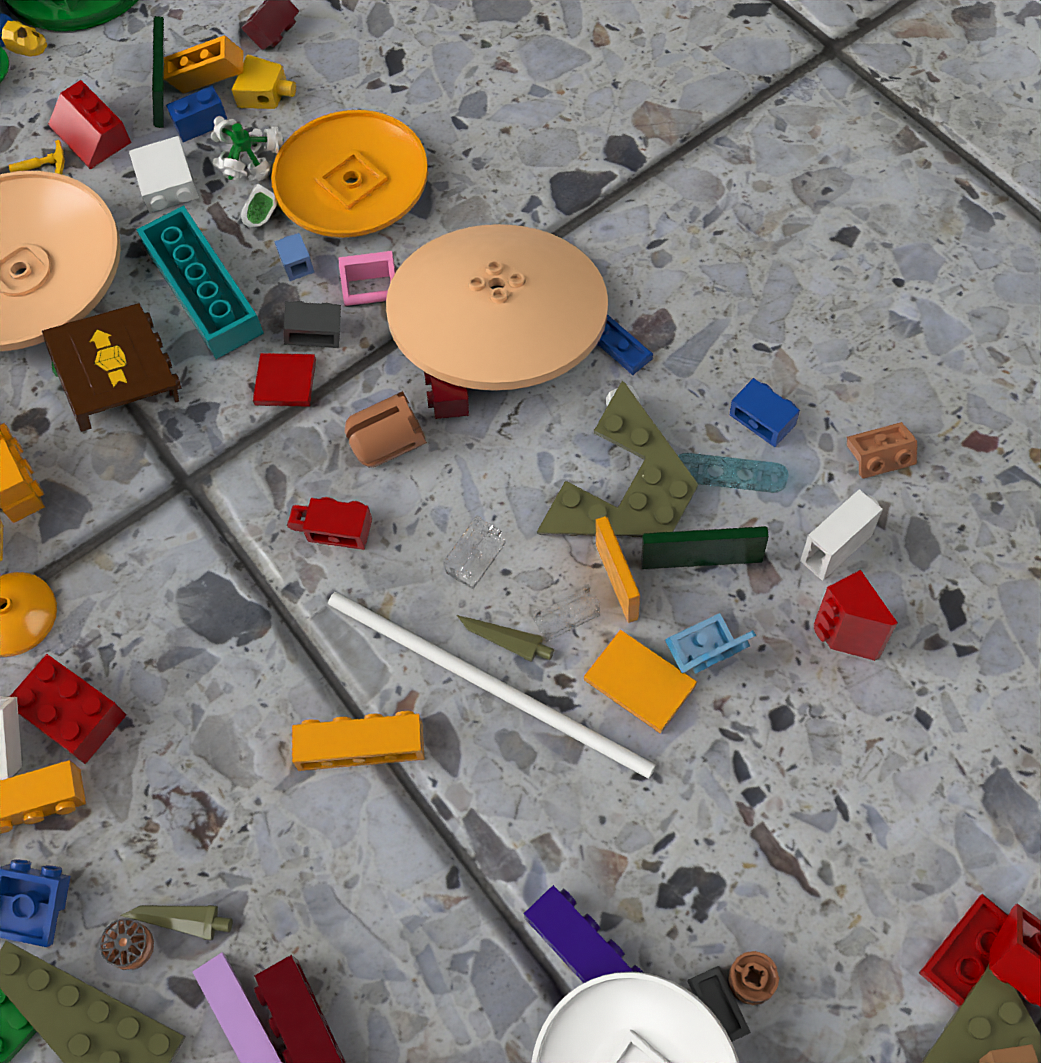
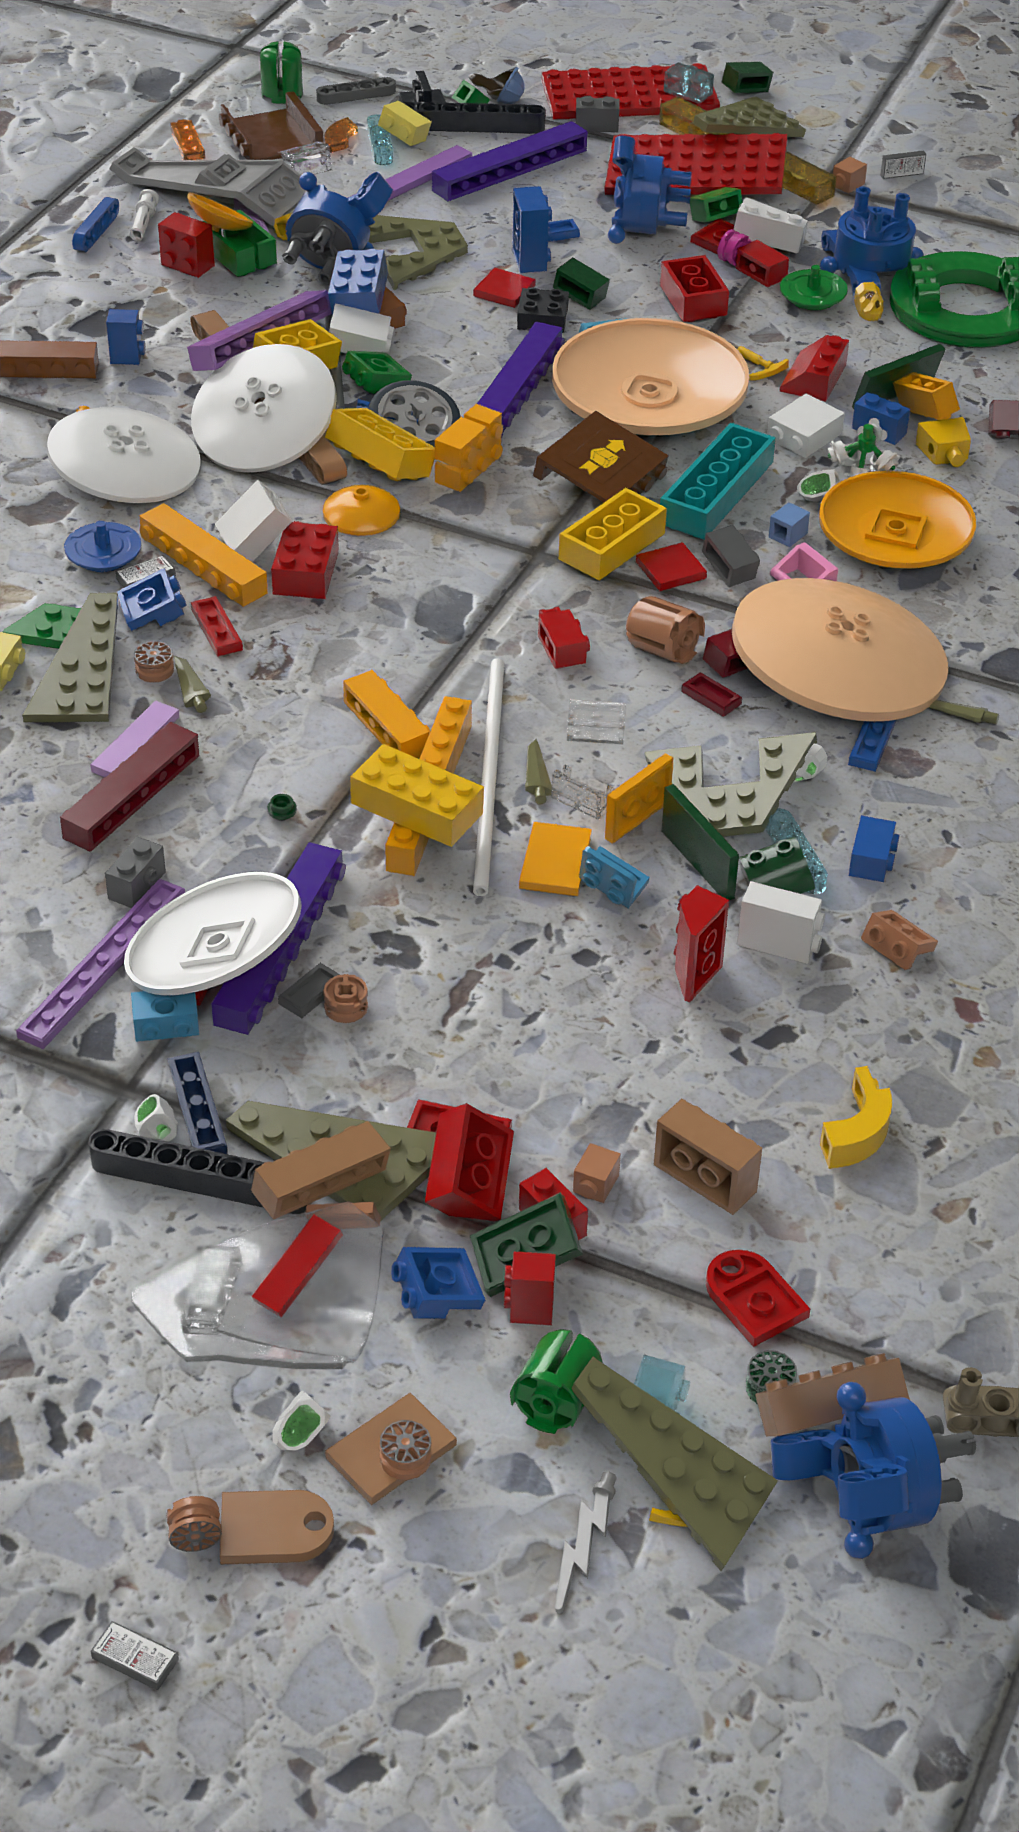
camera: 55 degrees right, 20 degrees down
(104, 847) = (216, 626): none -> red tile
(218, 406) = (612, 533): none -> yellow brick
(435, 901) = (281, 807): none -> dark green plate
(483, 435) = (711, 694): none -> dark red tile
(487, 750) = (442, 749): none -> light orange brick
(539, 777) = (417, 795): none -> yellow brick
(619, 252) = (965, 711): none -> olive bar
(762, 499) = (778, 866): none -> dark green brick

